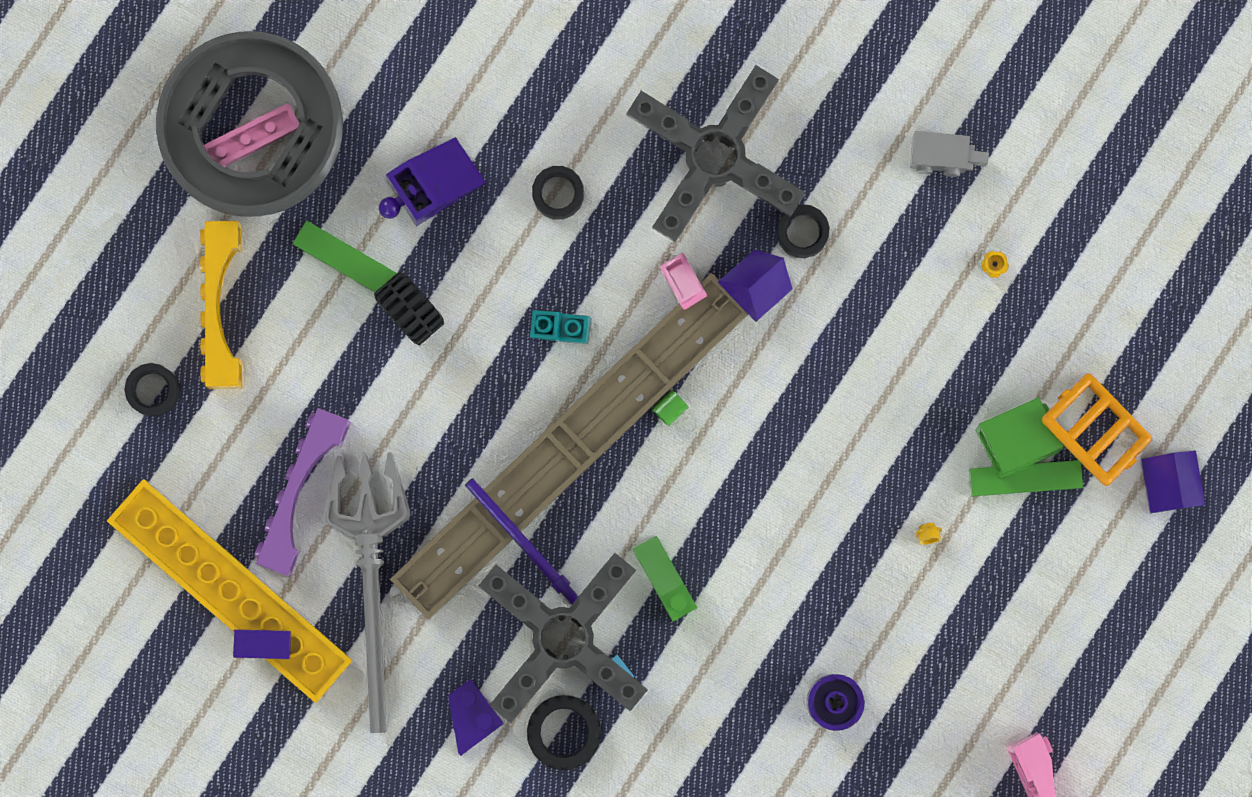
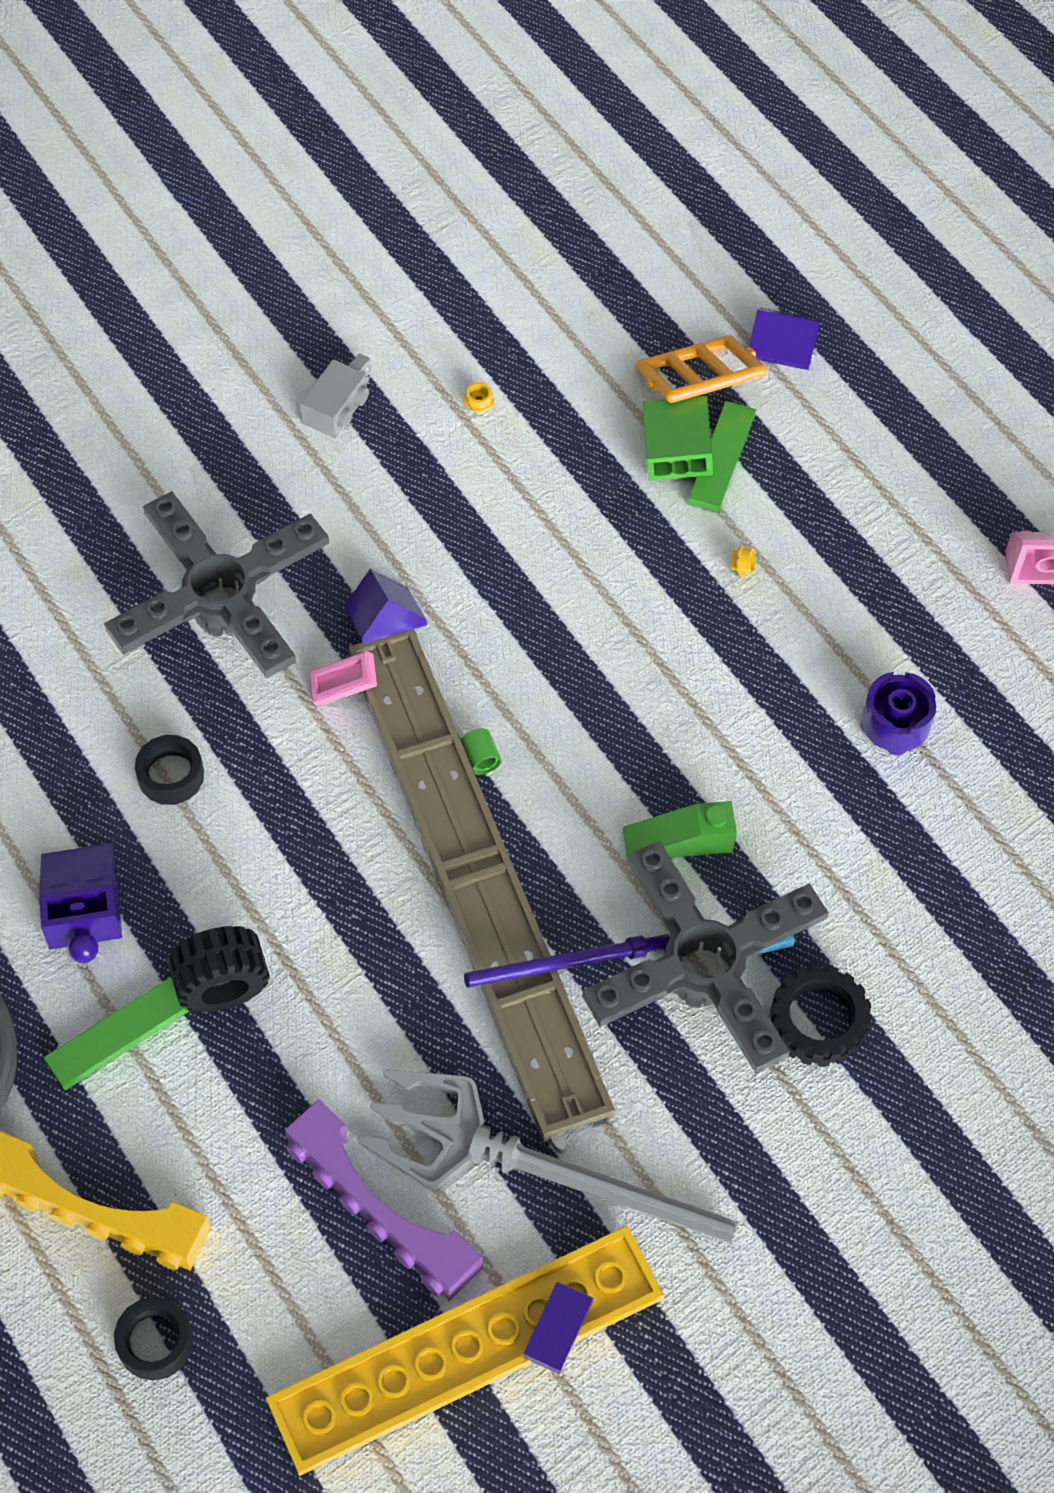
camera: 70 degrees left, 25 degrees down
(471, 716) = (758, 1115): dark purple wing -> none
(560, 327) = (328, 831): teal slope -> none
(803, 252) = (350, 530): black tyre -> none

